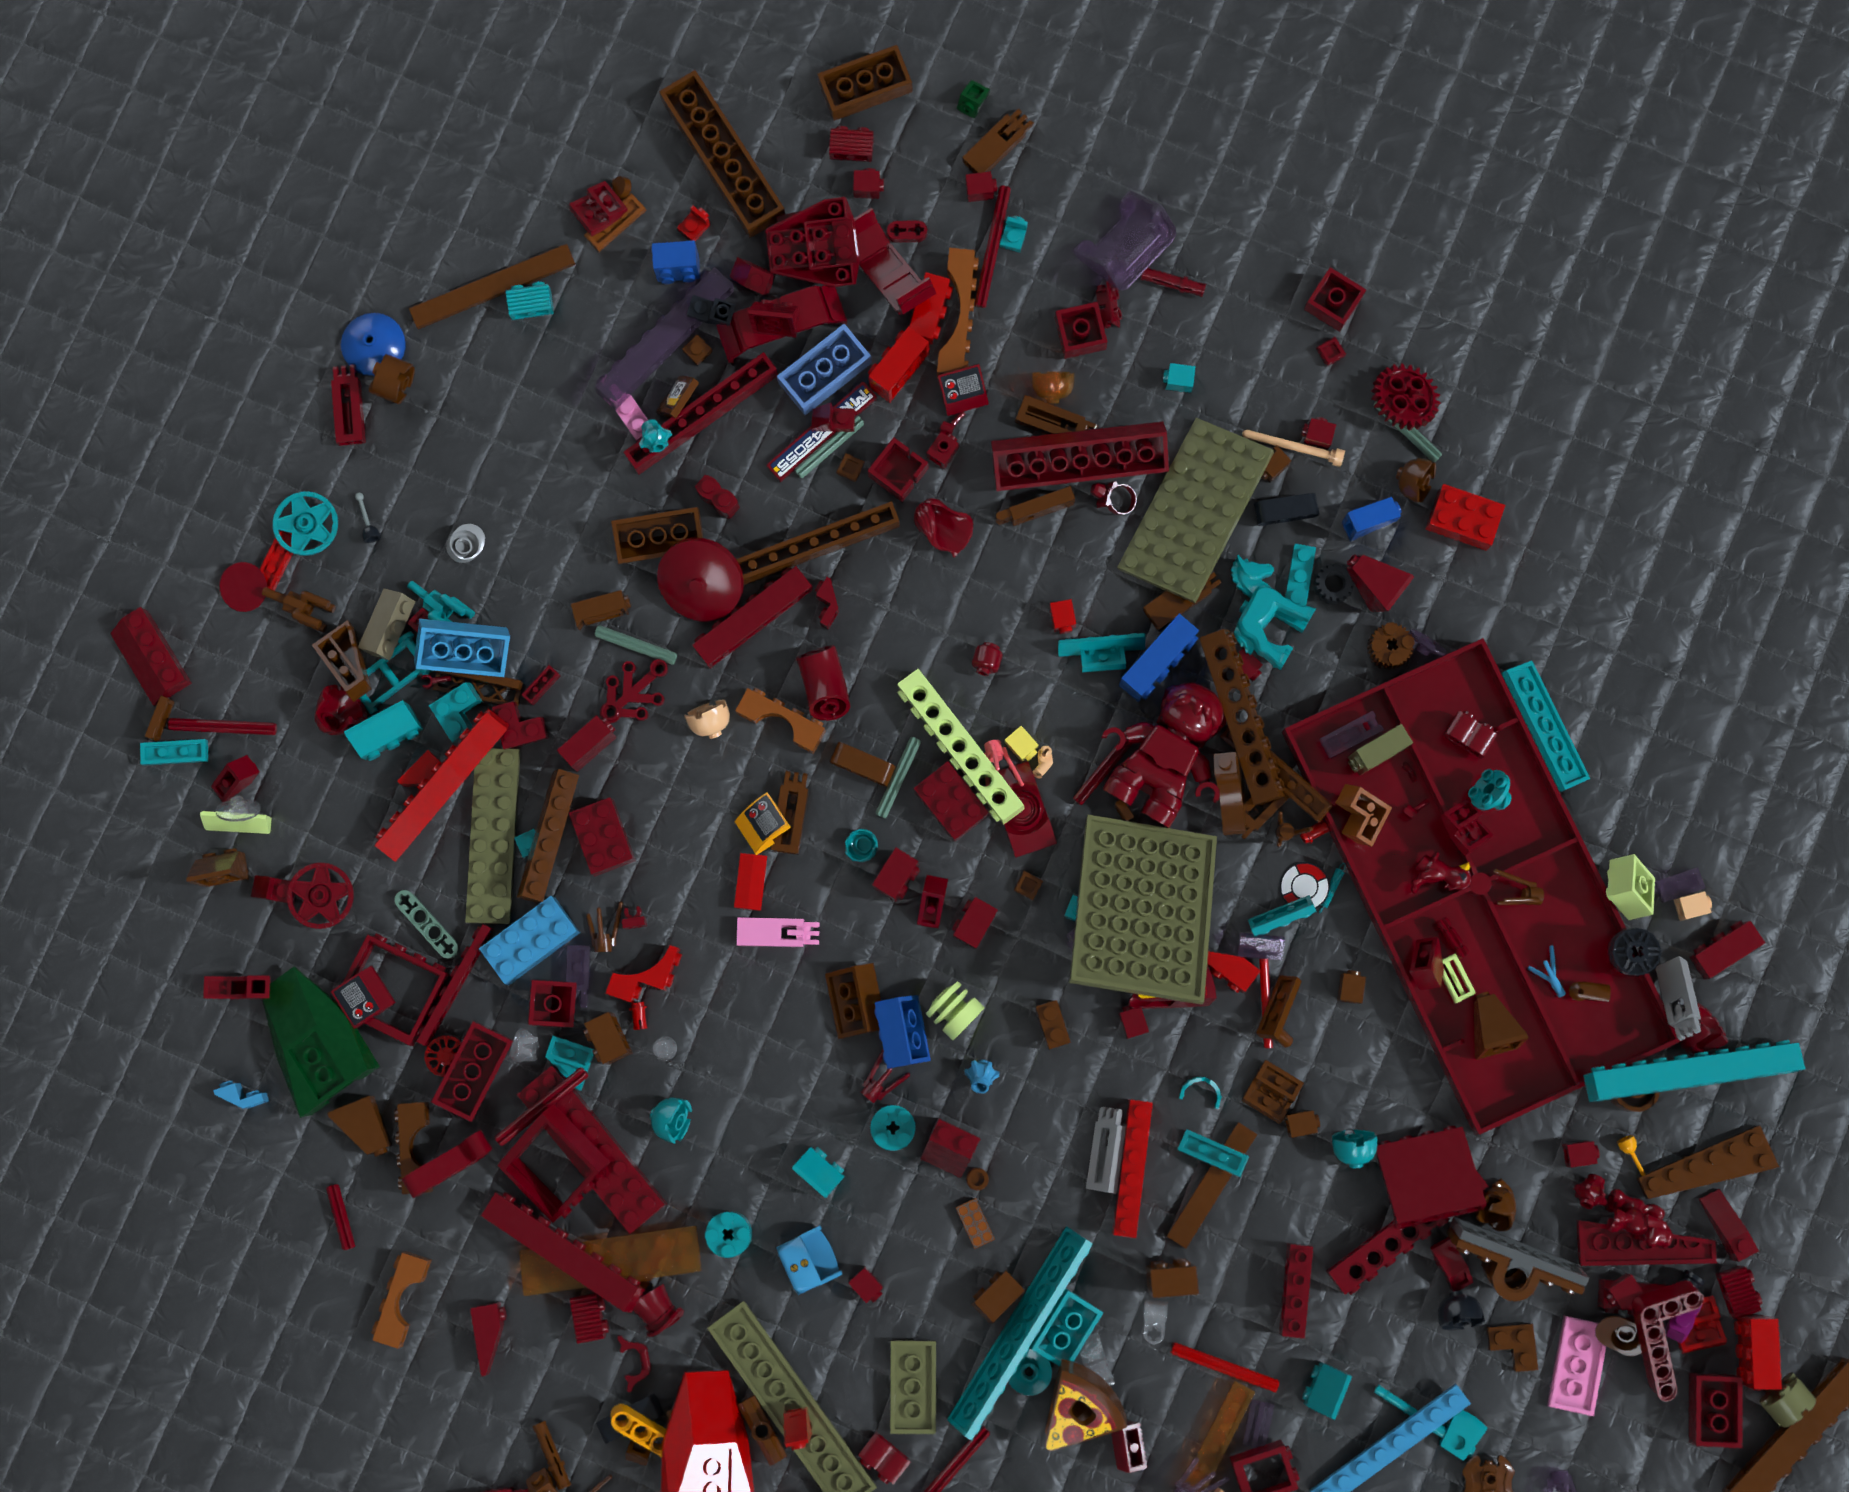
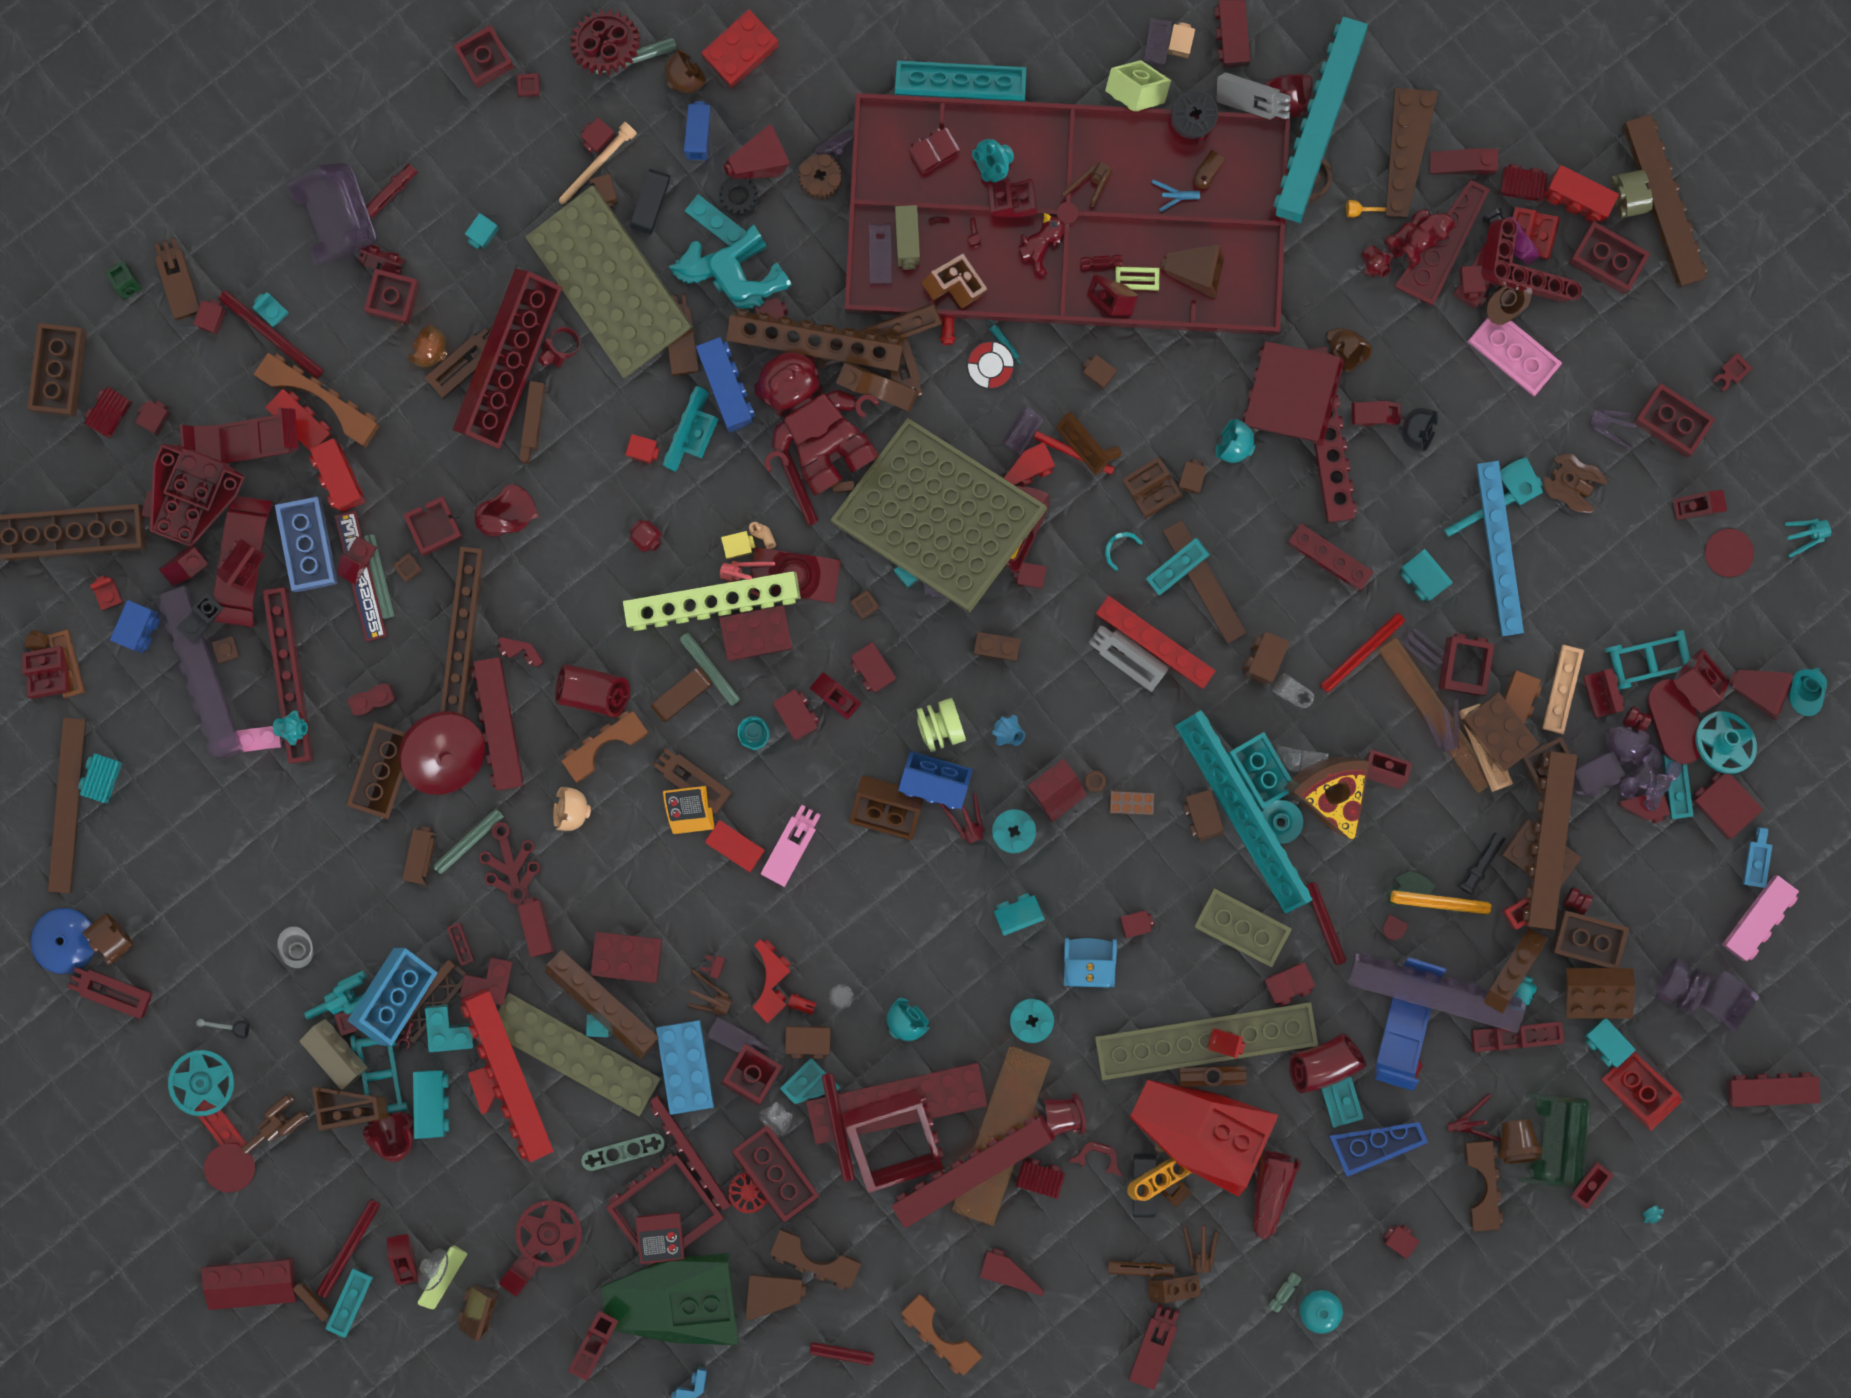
camera: 70 degrees left, 5 degrees up
(447, 1164) = (845, 1234): dark red beam -> none
(677, 396) = (262, 689): reddish brown slope -> none
(907, 237) = (211, 401): dark red beam -> none
(943, 449) = (435, 476): dark red brick -> none
(949, 427) = (417, 463): dark red hand -> none
(963, 389) = (390, 430): slope -> none
(1282, 916) = (1006, 398): teal plate -> none
(1286, 831) = (934, 355): reddish brown plant -> none
(1504, 1253) = (1389, 364): piece -> none
(1519, 1339) = (1468, 390): reddish brown plate -> none
(1580, 1154) = (1340, 253): dark red brick -> none

